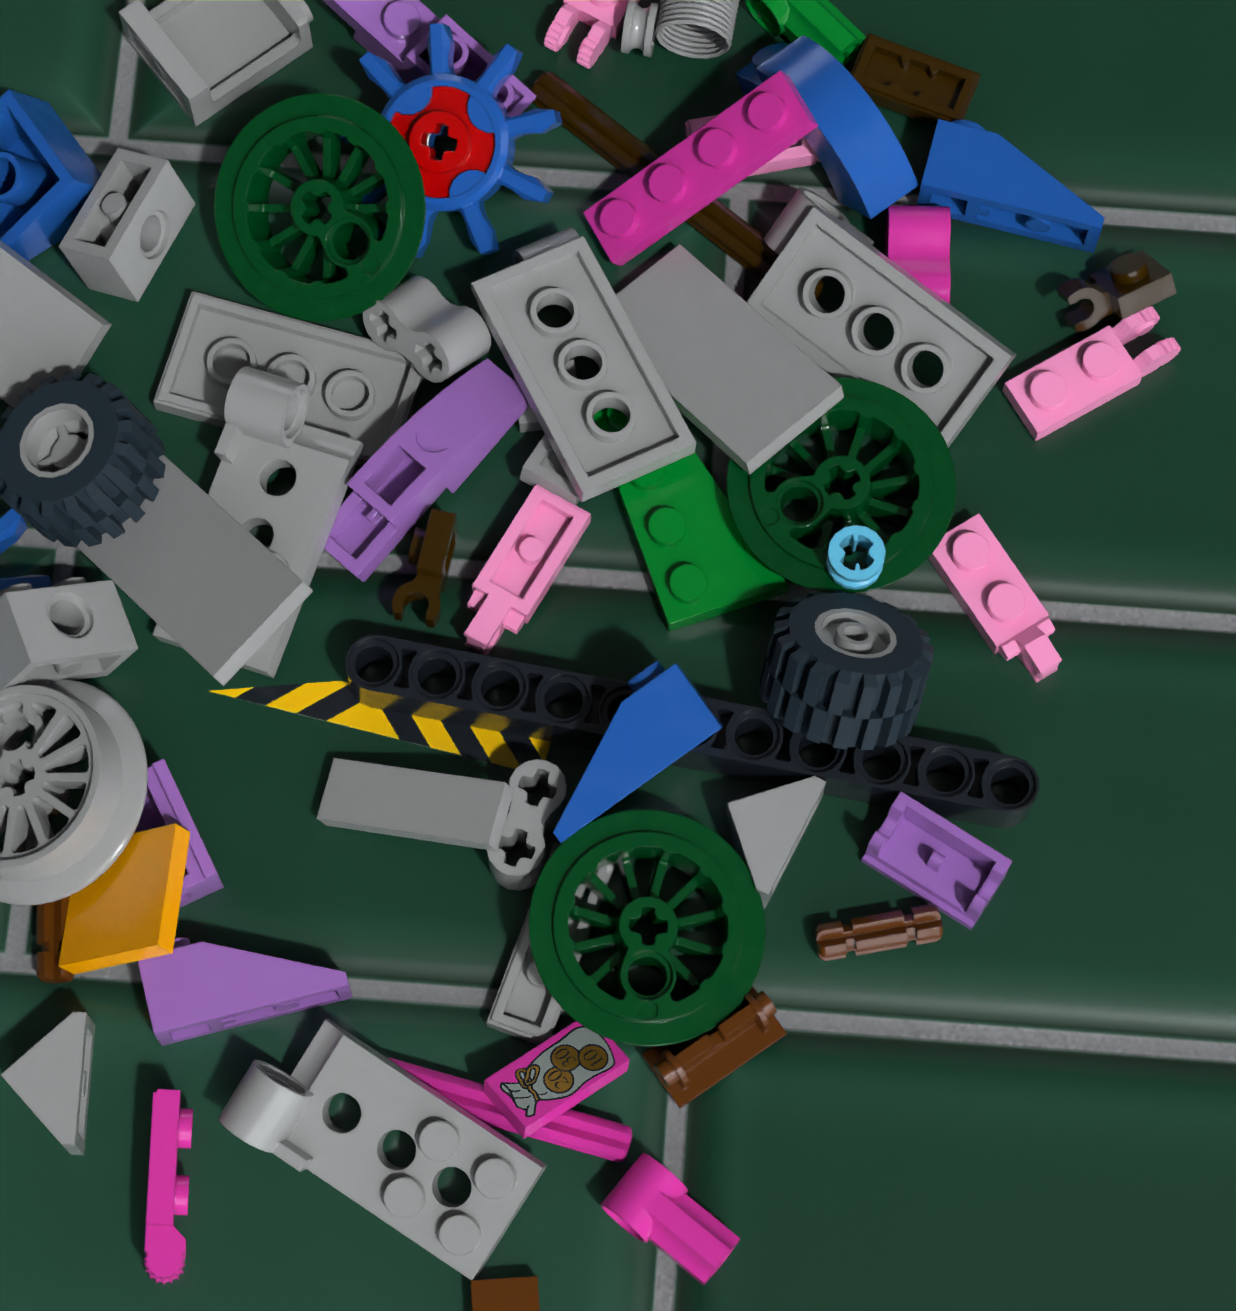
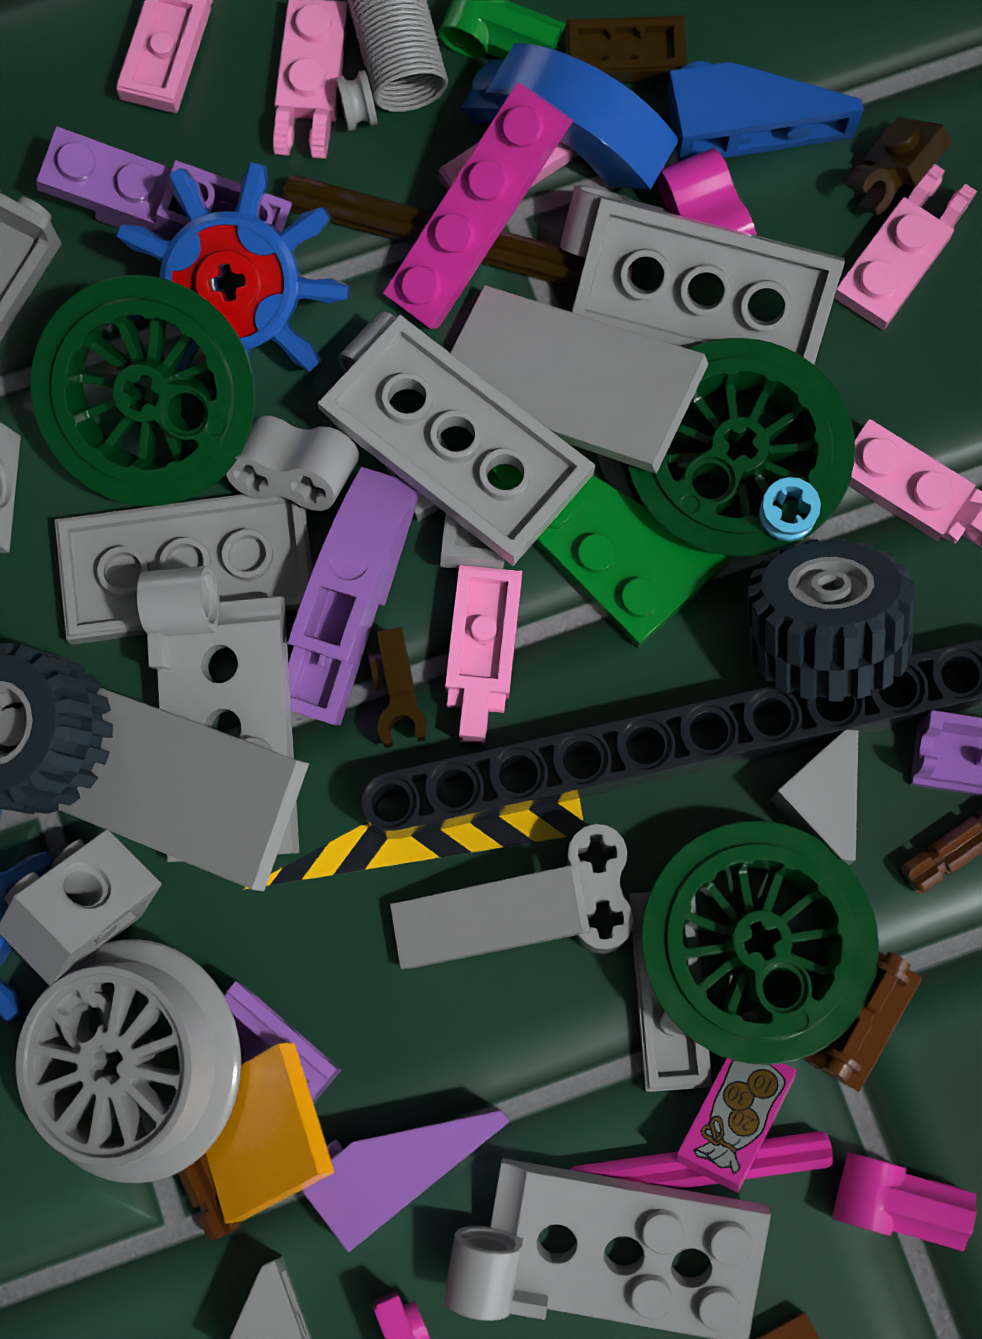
camera: 20 degrees left, 5 degrees up
(645, 736) = (680, 769): blue slope -> none

